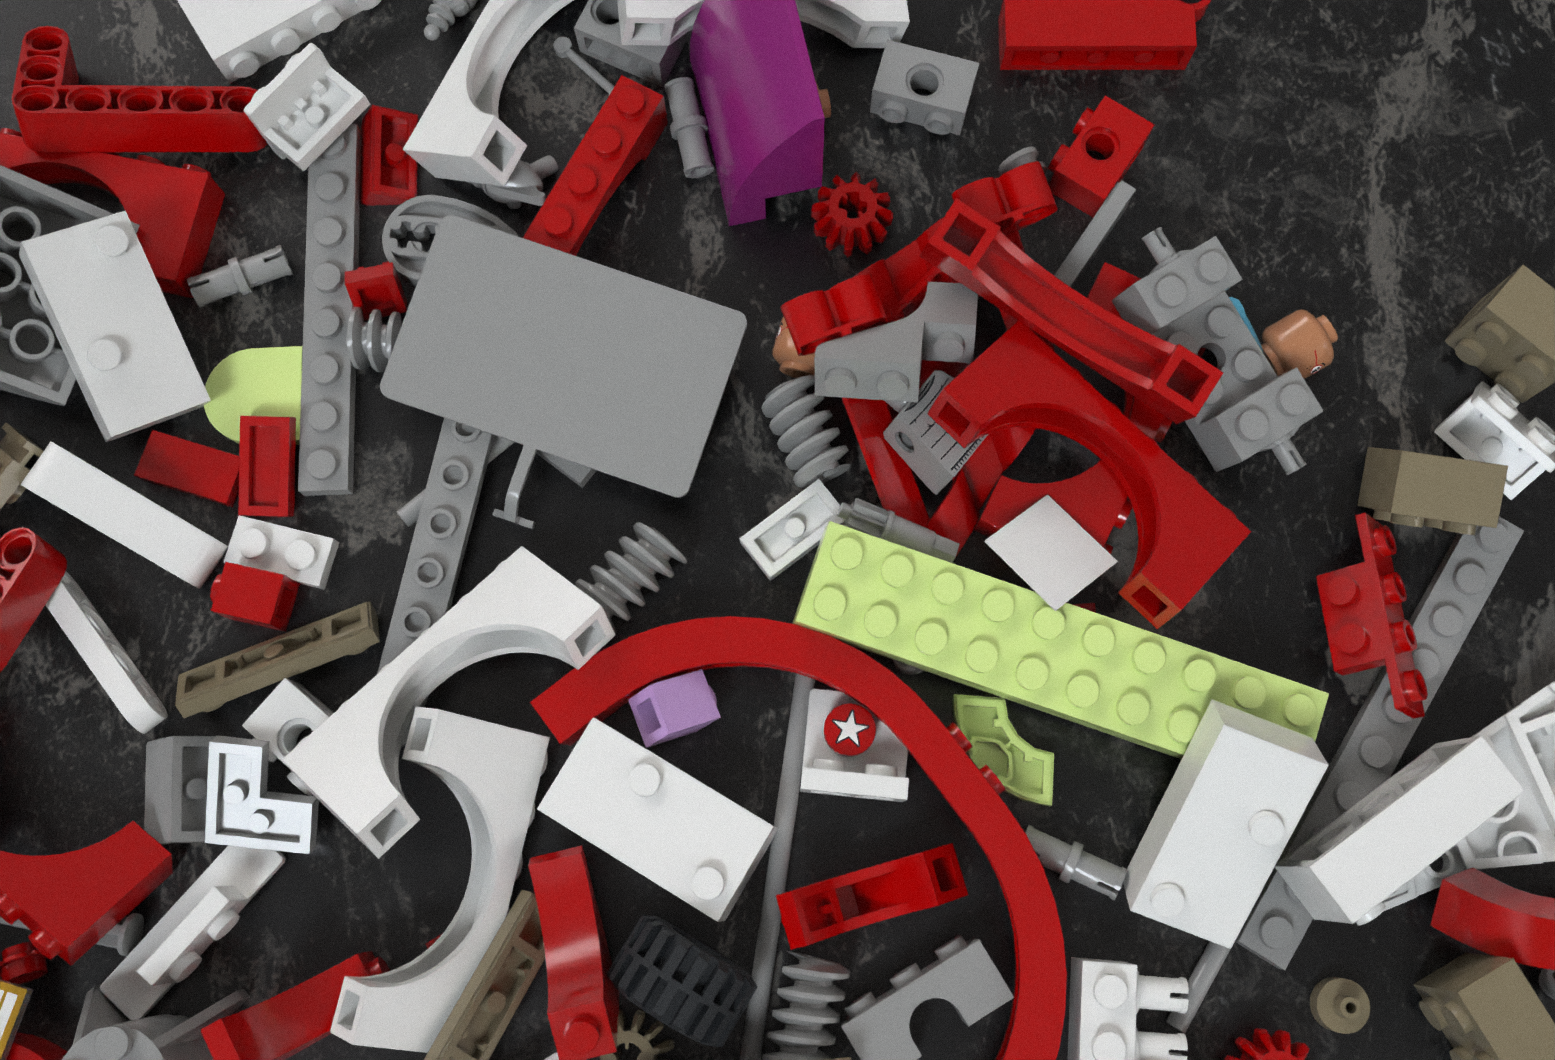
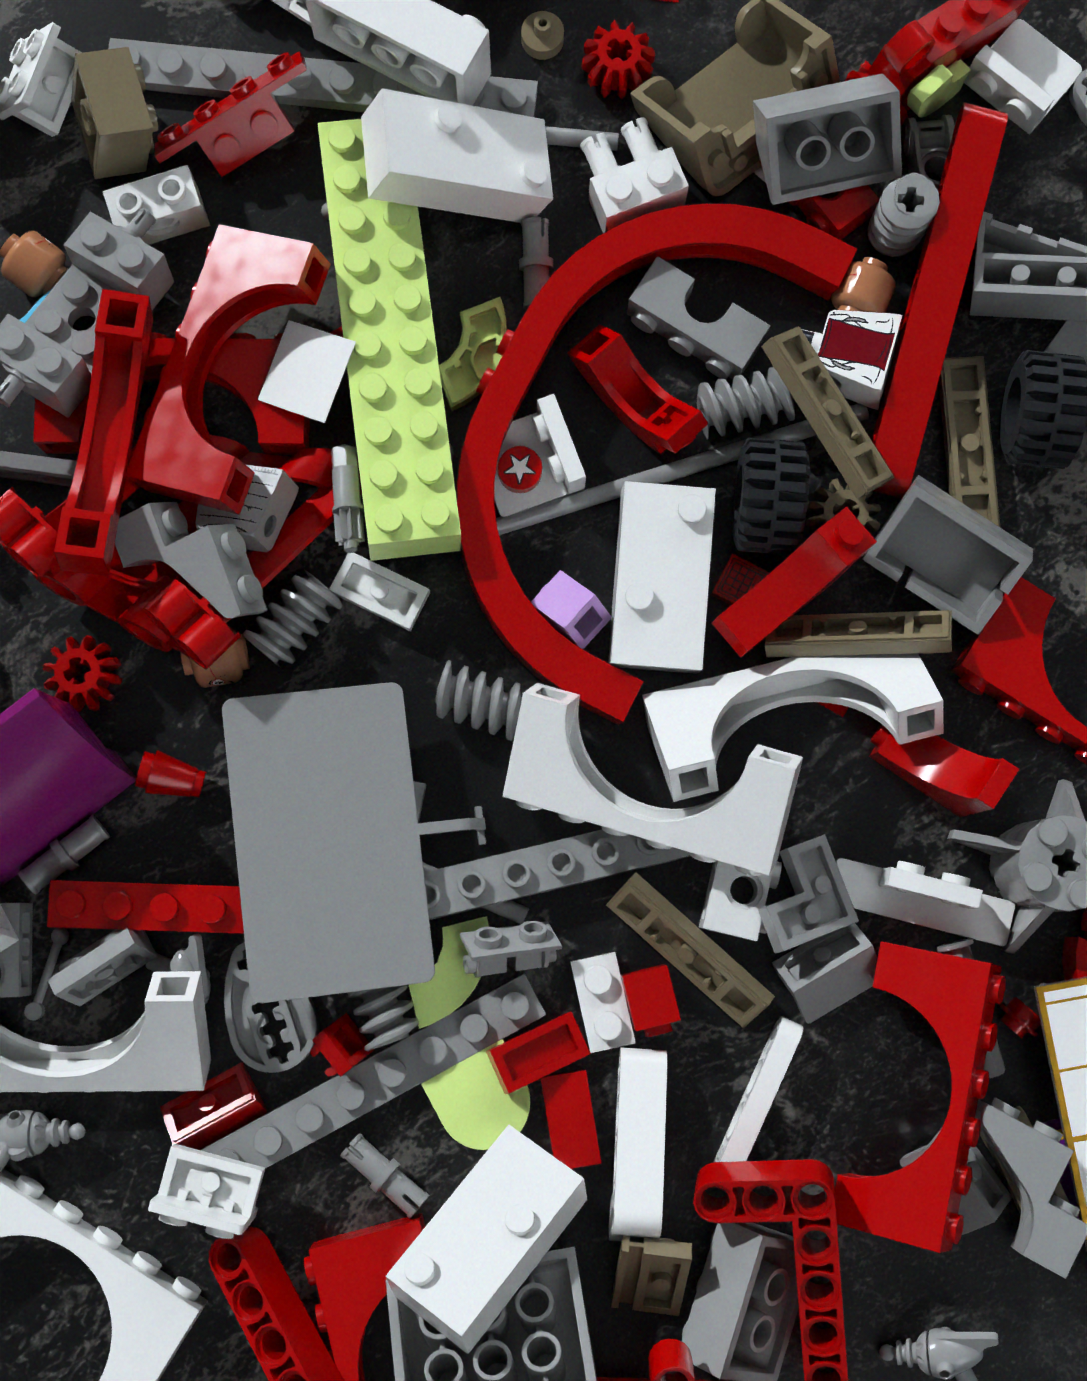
camera: 120 degrees left, 5 degrees up
(378, 494) = (530, 945): none -> light grey hinge
(388, 428) = (450, 983): none -> yellowish green tile
(566, 108) = (102, 965): none -> light grey bracket
(619, 906) = (737, 579): none -> tile
(713, 250) = (169, 776): none -> red cone
(1309, 500) = (168, 196): none -> white brick

